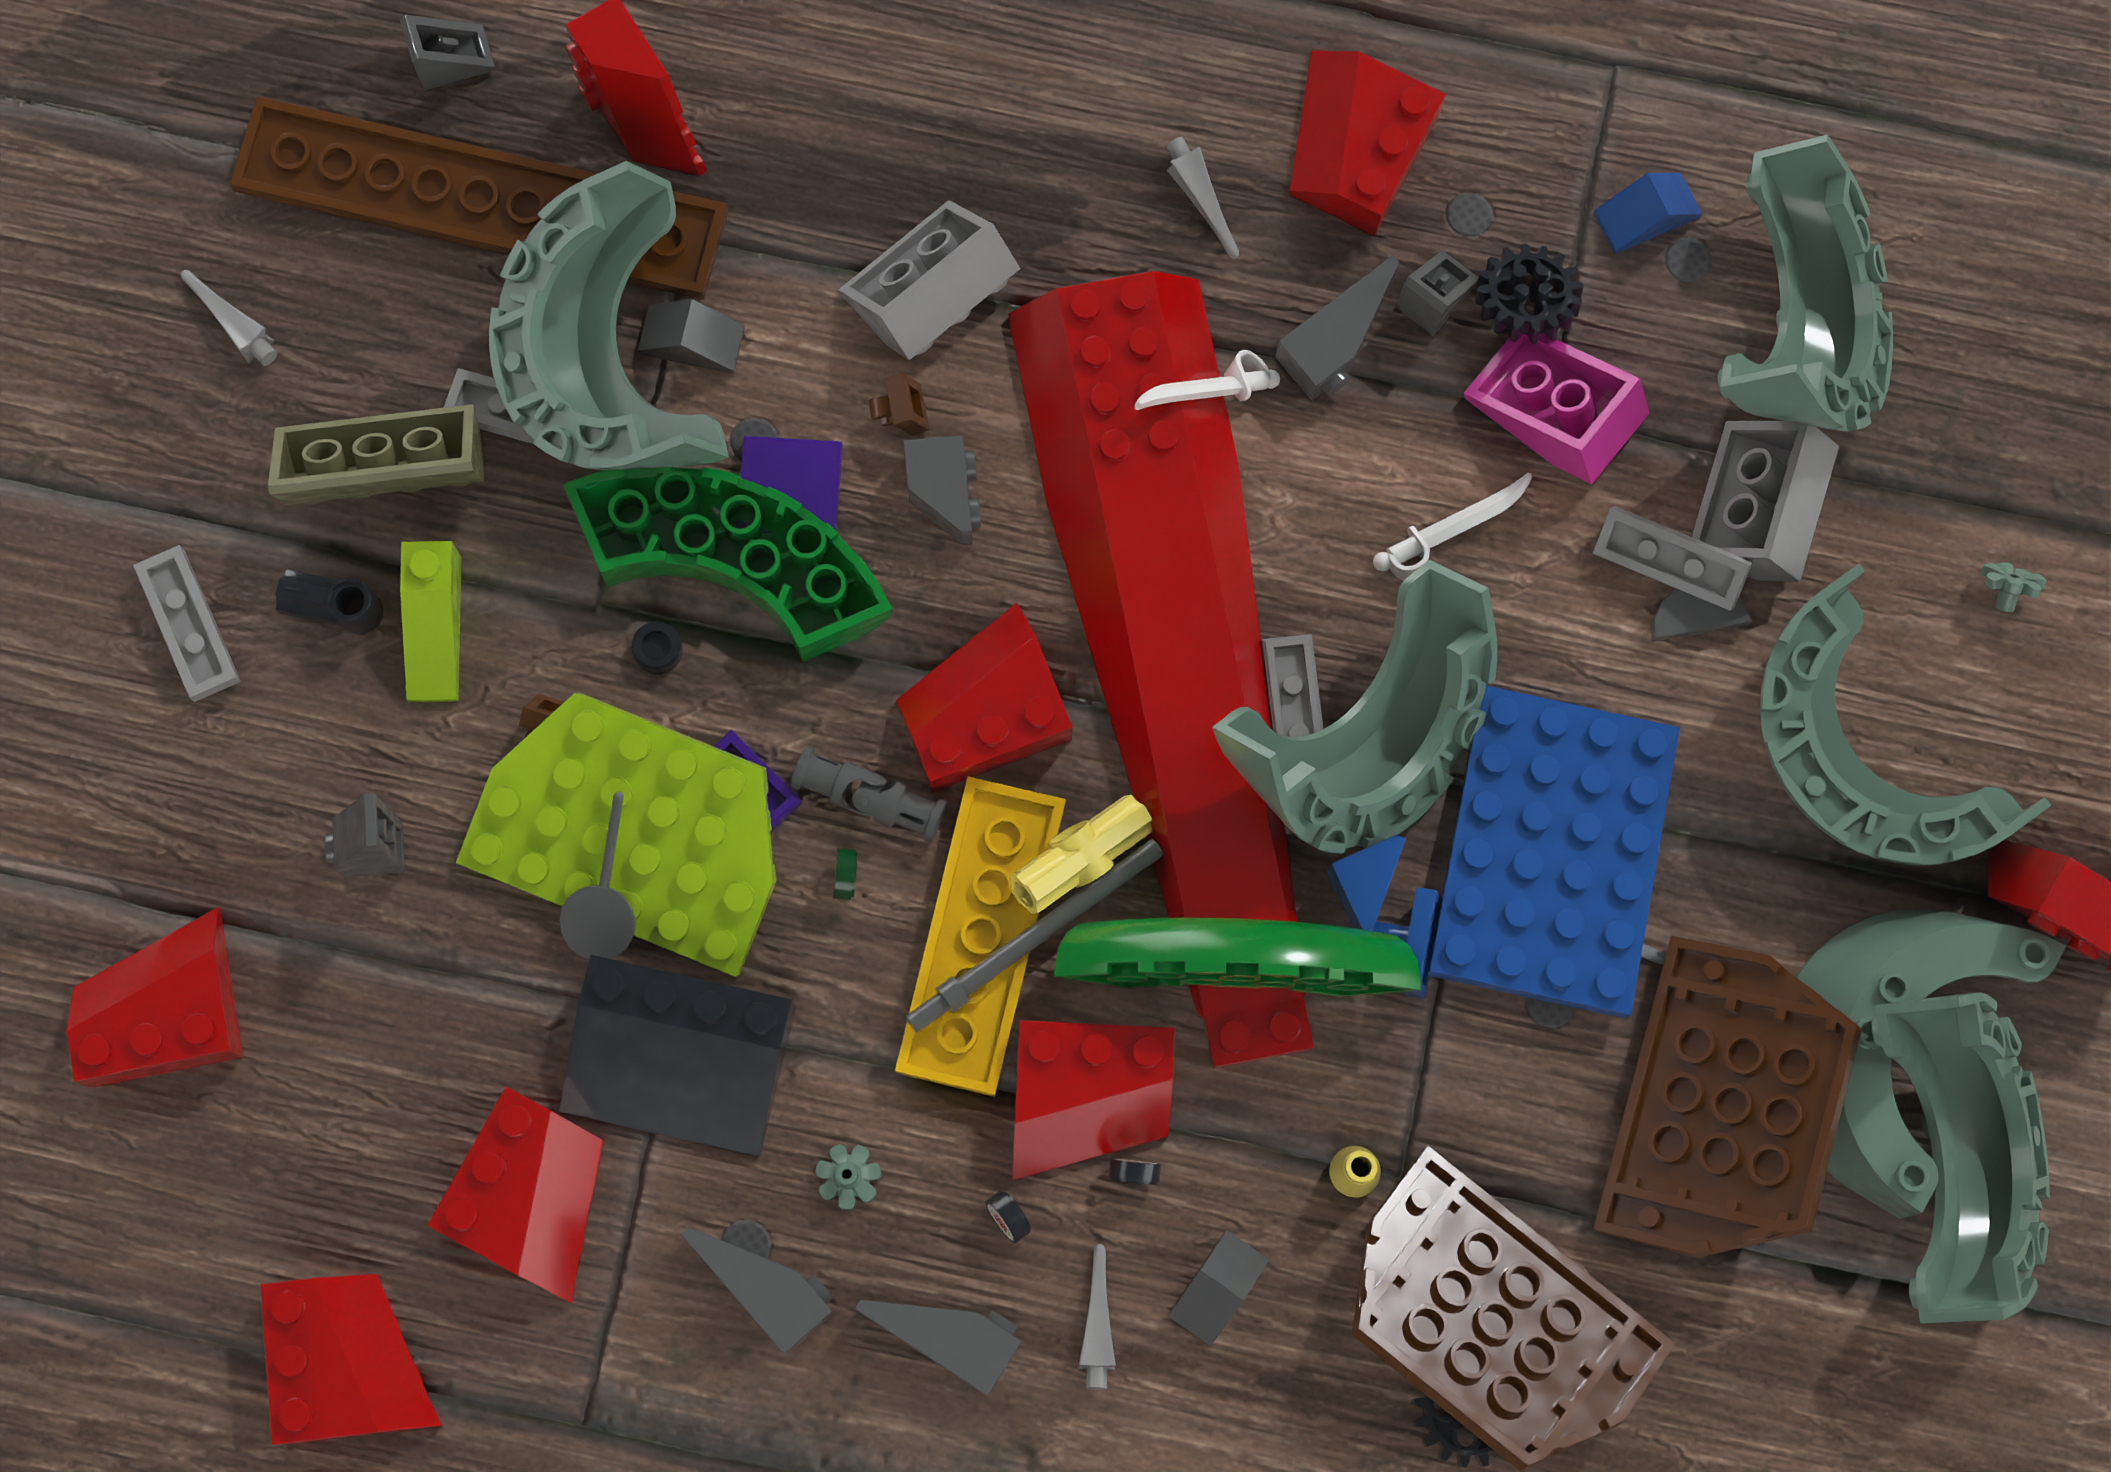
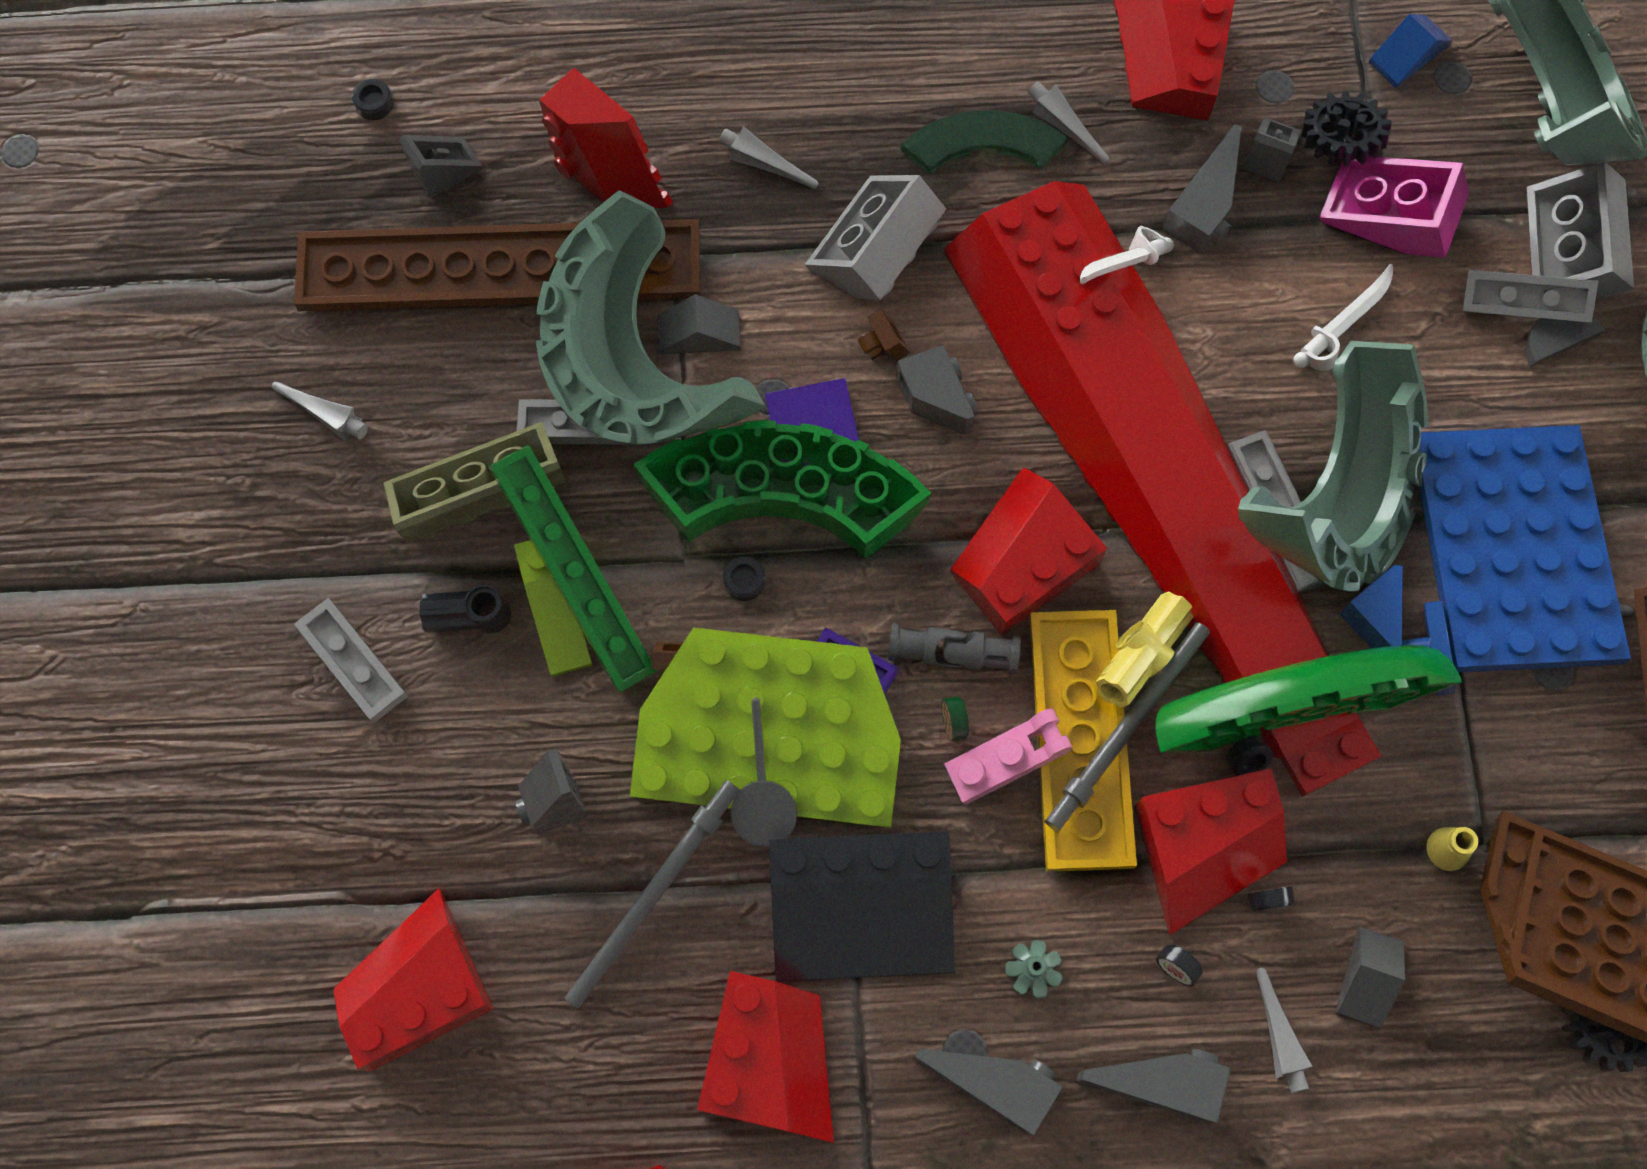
camera: 10 degrees left, 5 degrees down
(457, 588) = (572, 568): none -> green plate
(528, 915) = (705, 821): none -> dark grey bar
(815, 132) = (752, 151): none -> light grey piece
(888, 934) = (1007, 757): none -> bright pink plate
(1096, 179) = (984, 129): none -> clear green tile
(1163, 1006) = (1249, 755): none -> black tile

